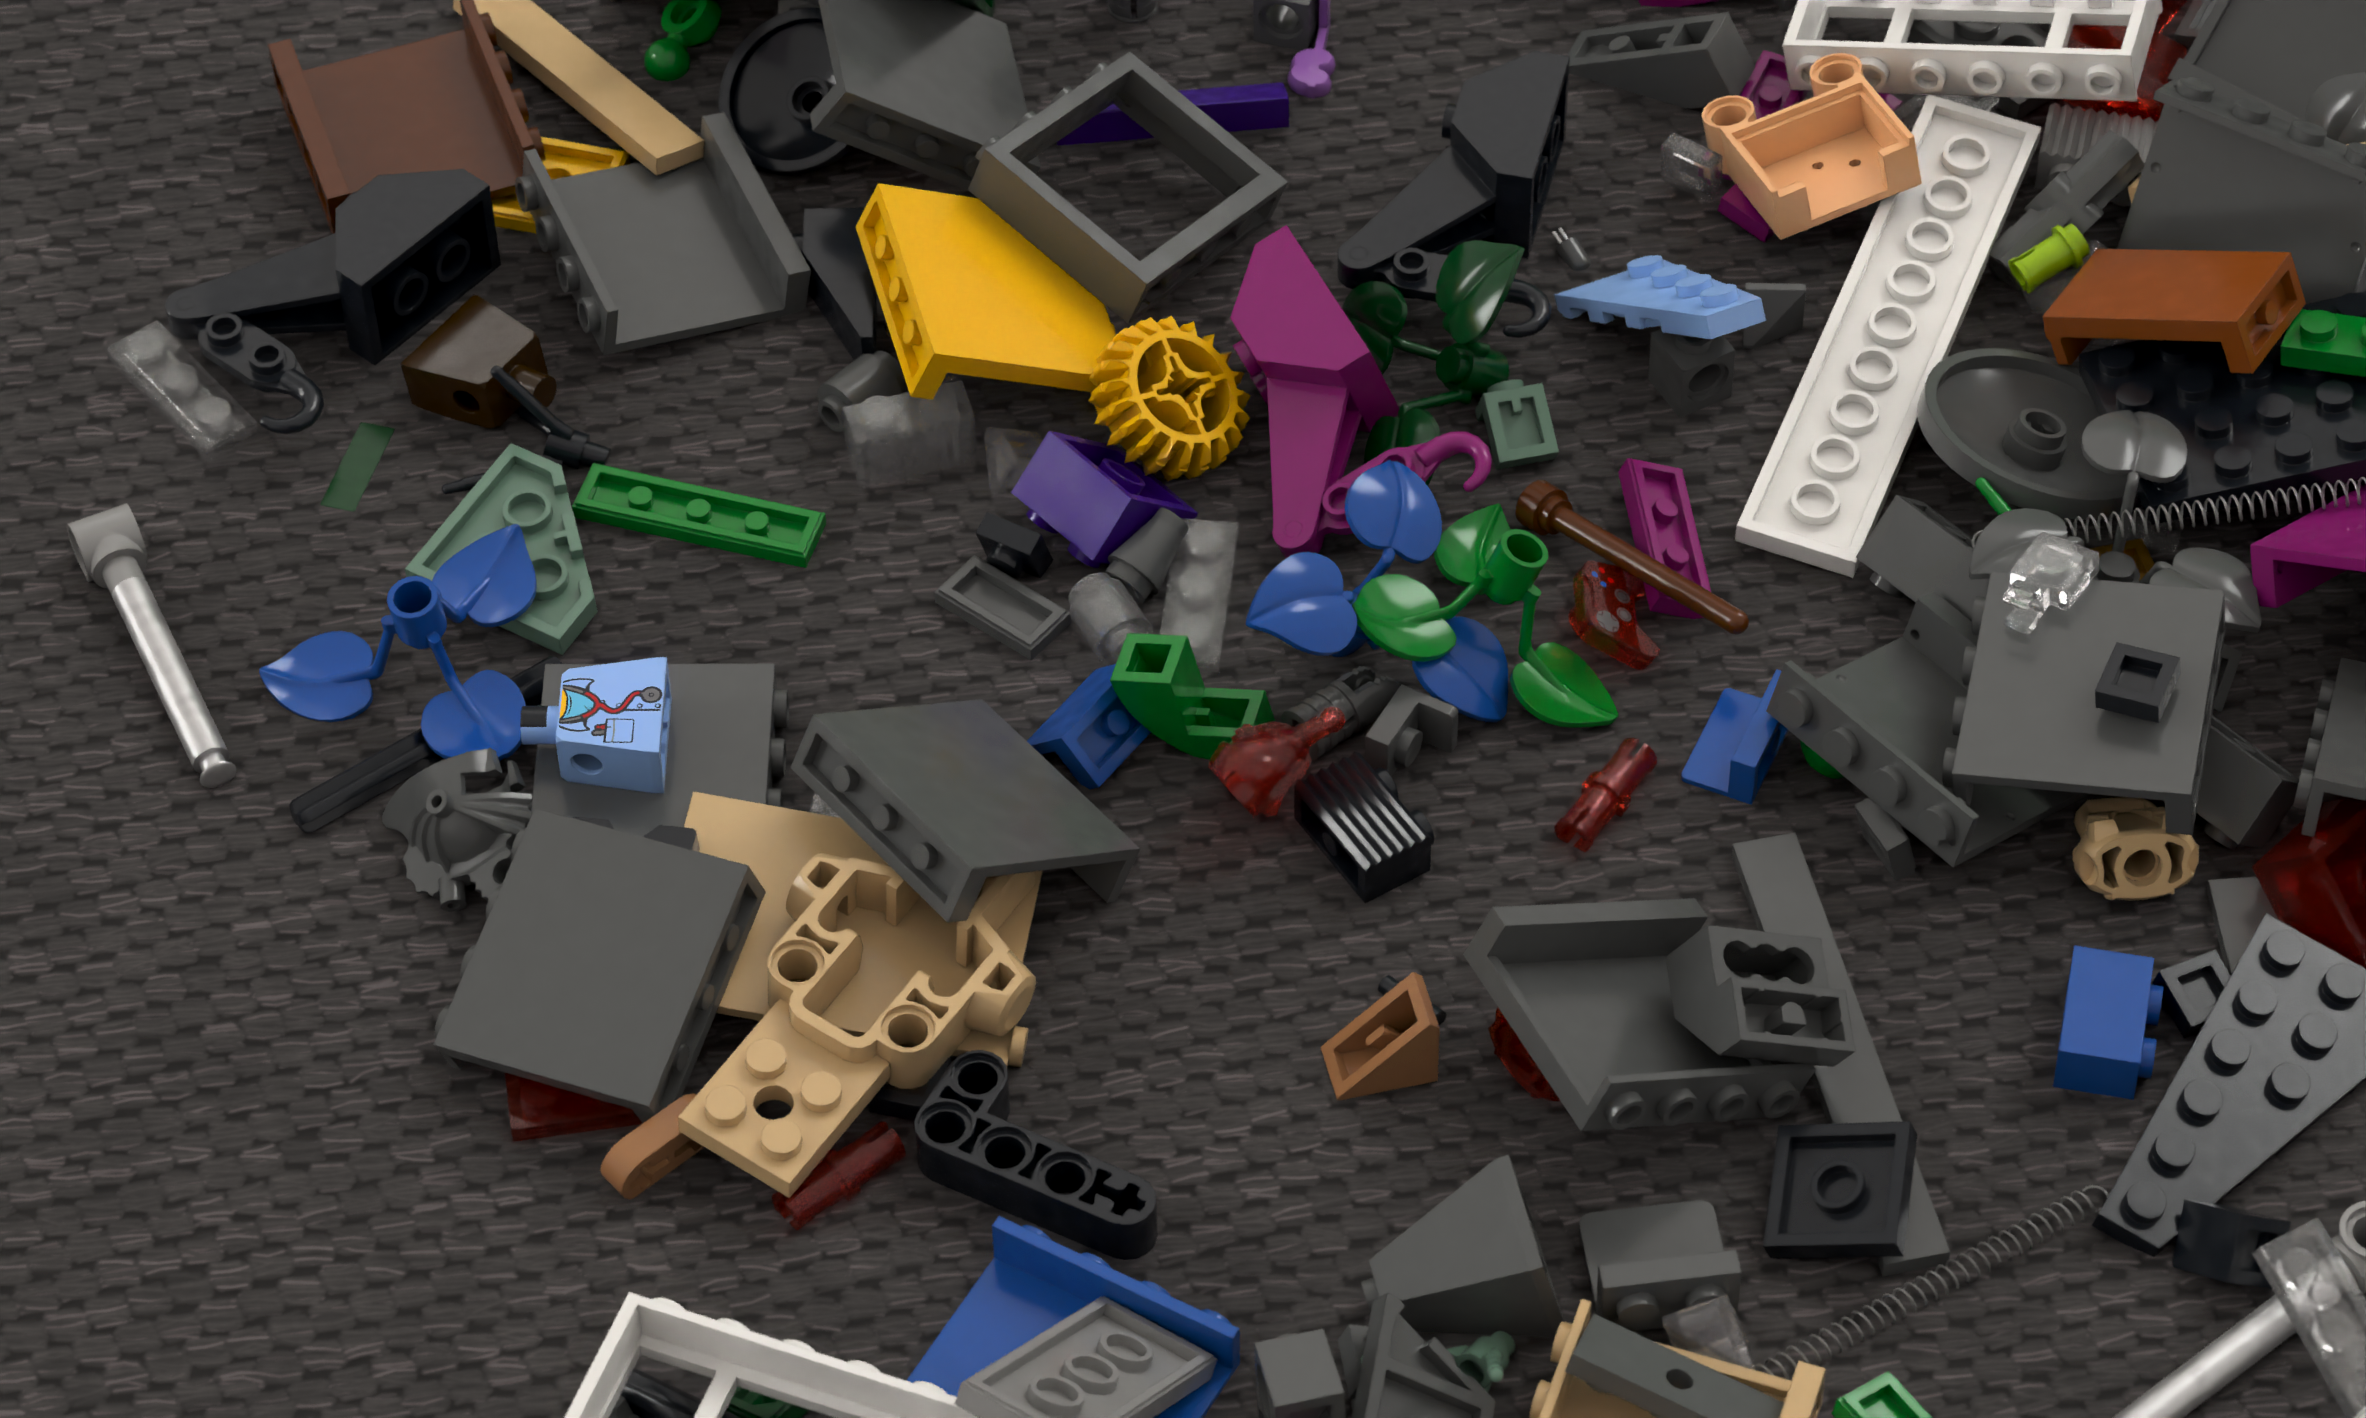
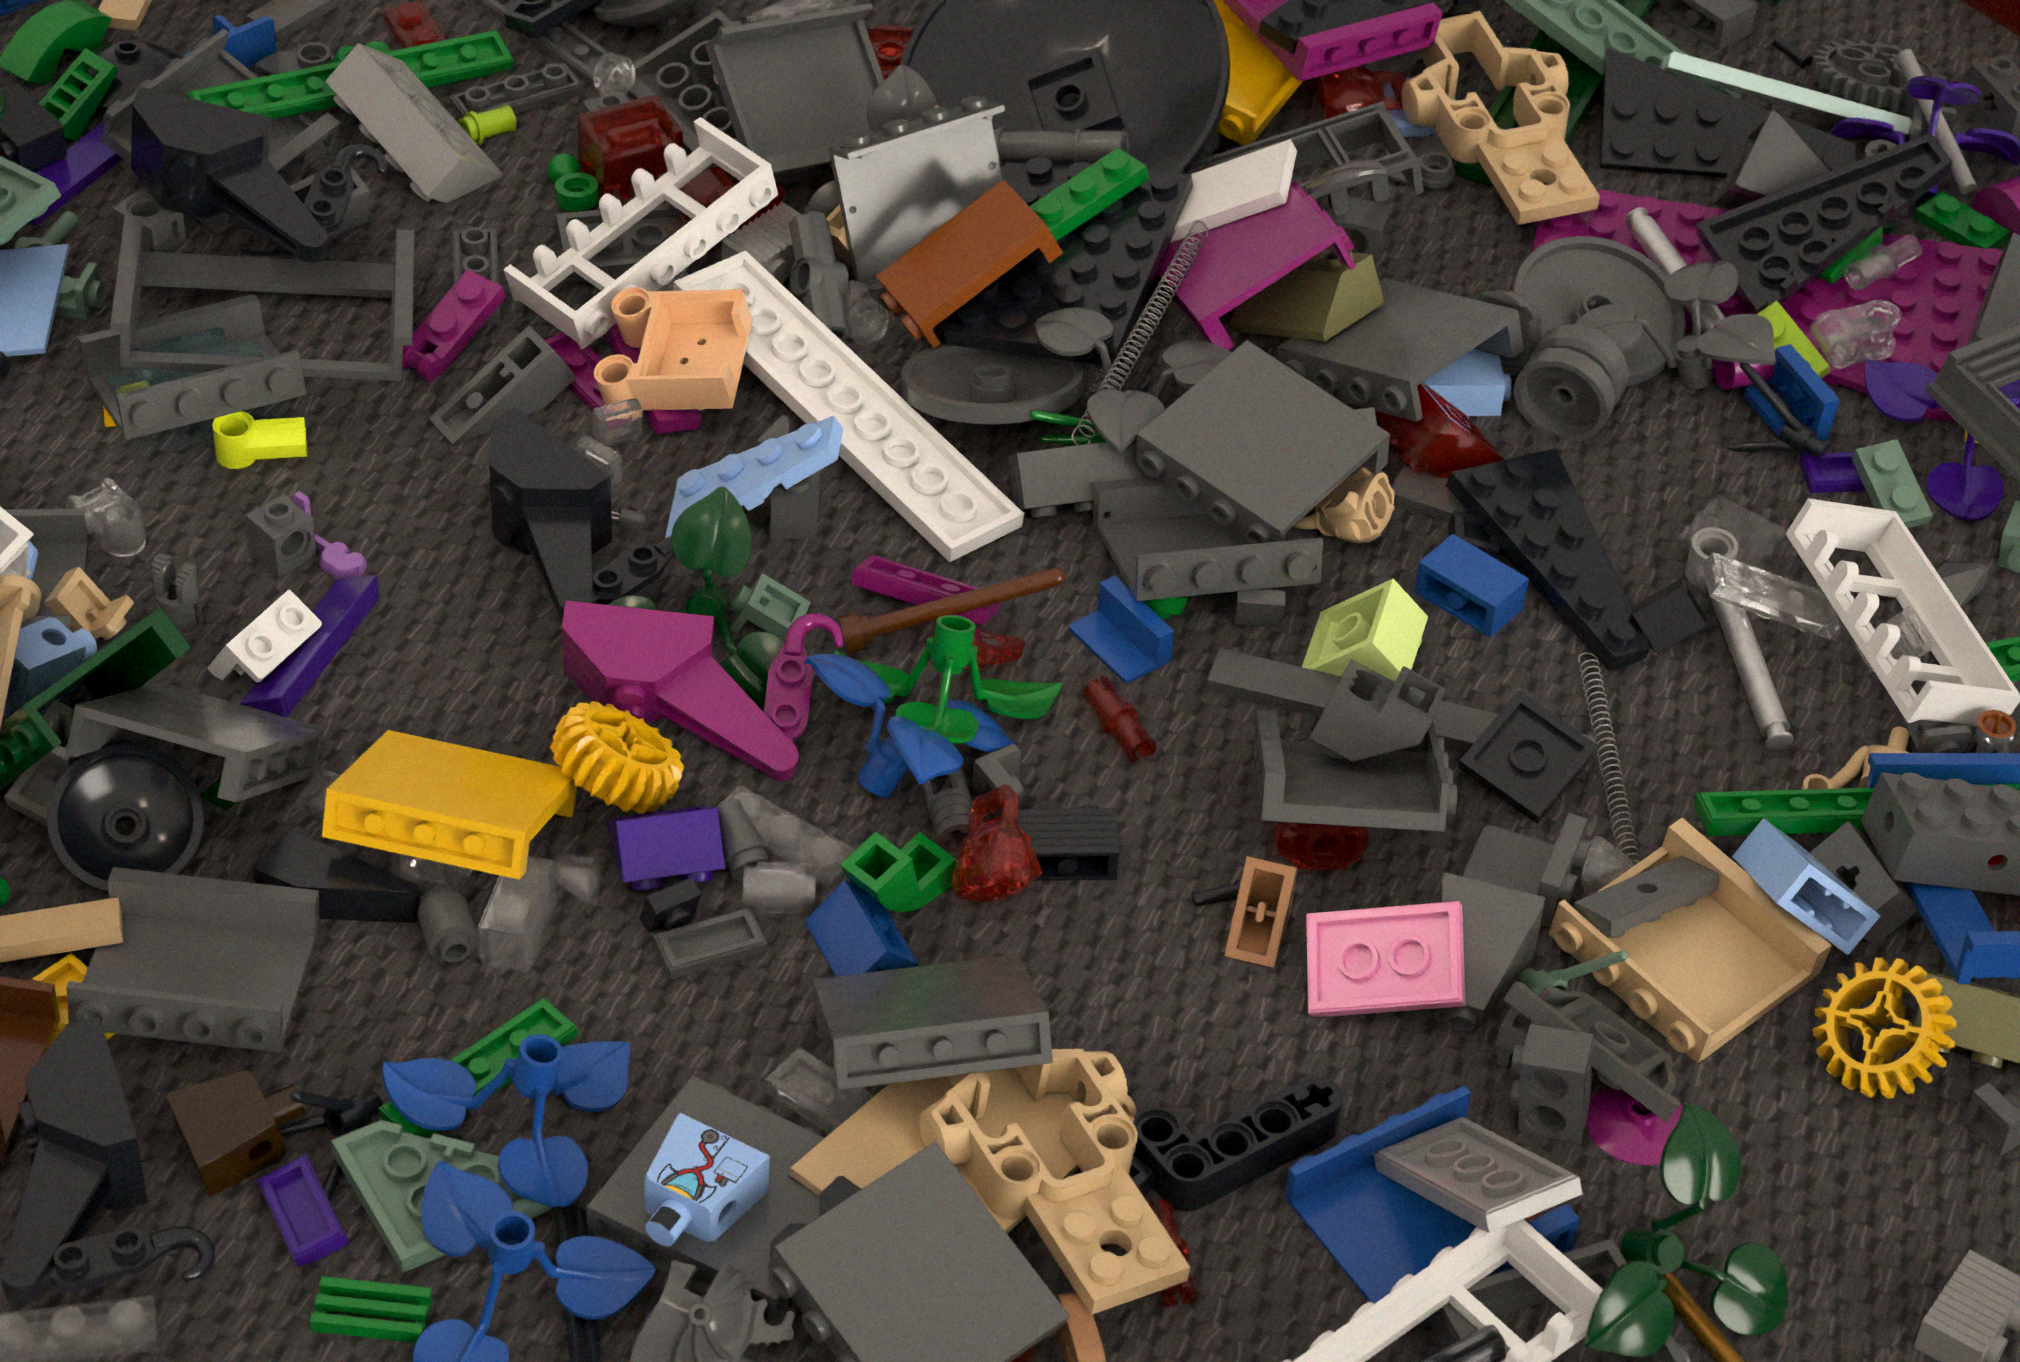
camera: 65 degrees left, 5 degrees down
(333, 550) = (371, 1300): none -> green tile
(357, 466) = (247, 1257): dark green window -> none
(429, 474) = (303, 1211): none -> dark purple tile
(628, 484) = (546, 1170): none -> blue plant
(1079, 244) = (485, 724): dark grey window -> none
(1167, 57) = (267, 639): none -> white bracket
(1379, 1177) = (1385, 959): none -> bright pink tile
(1615, 185) = (604, 458): none -> clear tile
(1920, 965) = (1373, 628): none -> yellowish green slope
(2047, 575) = (1174, 405): clear plate -> none
(2050, 257) = (858, 294): lime pin -> none
(2137, 682) = (1298, 407): black plate -> none

